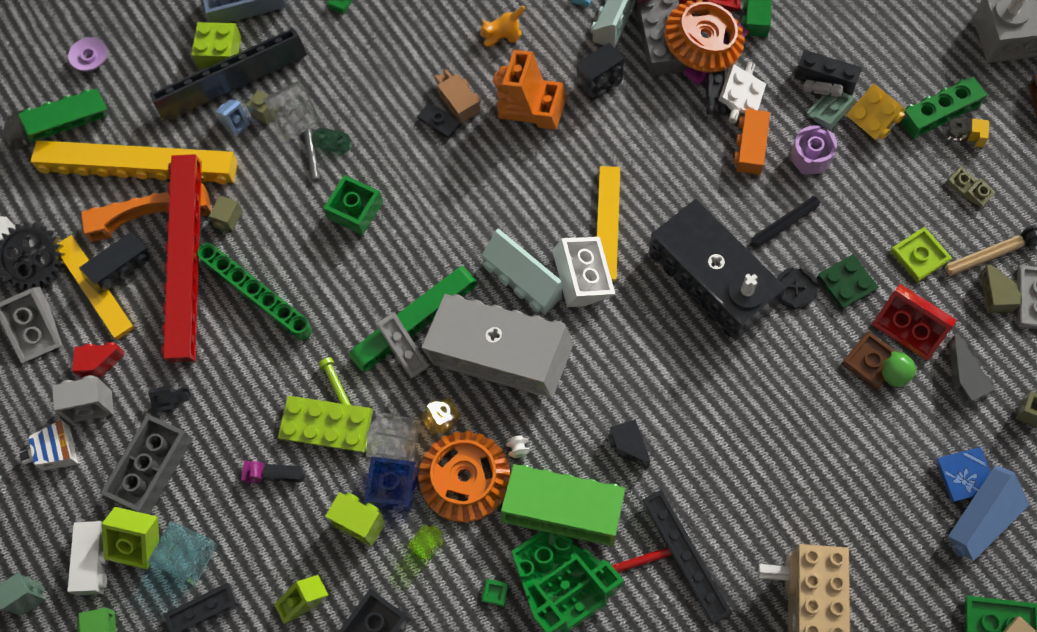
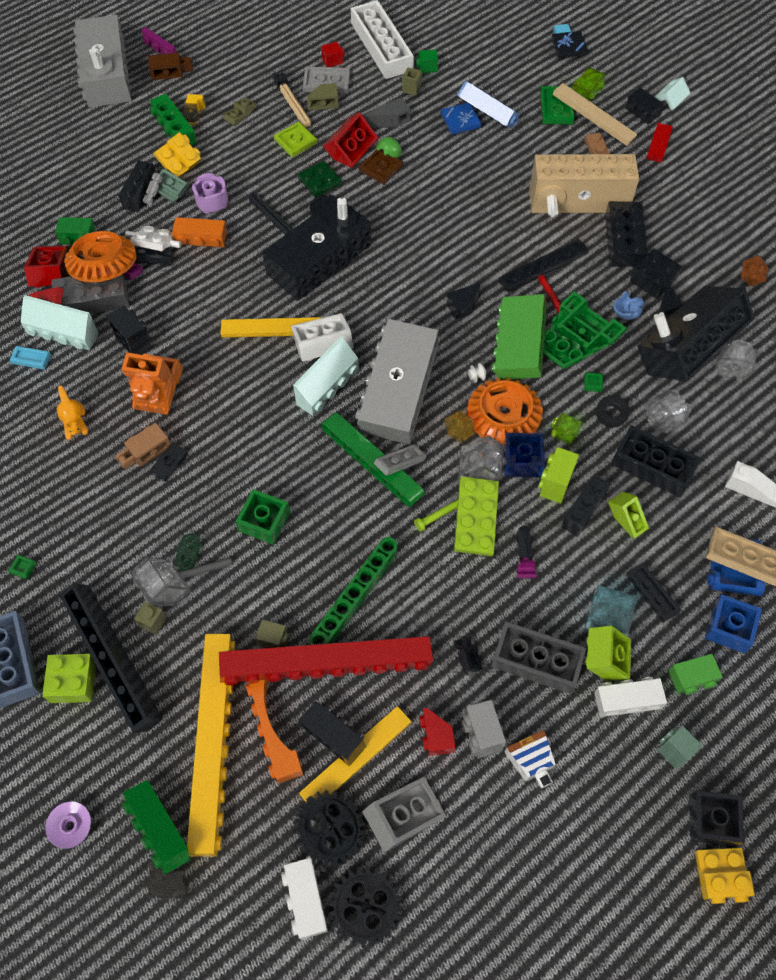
camera: 100 degrees left, 5 degrees down
(232, 117) = (159, 645): light blue slope -> none
(318, 548) = (585, 505): none -> black brick
(458, 619) = (615, 401): none -> black tyre

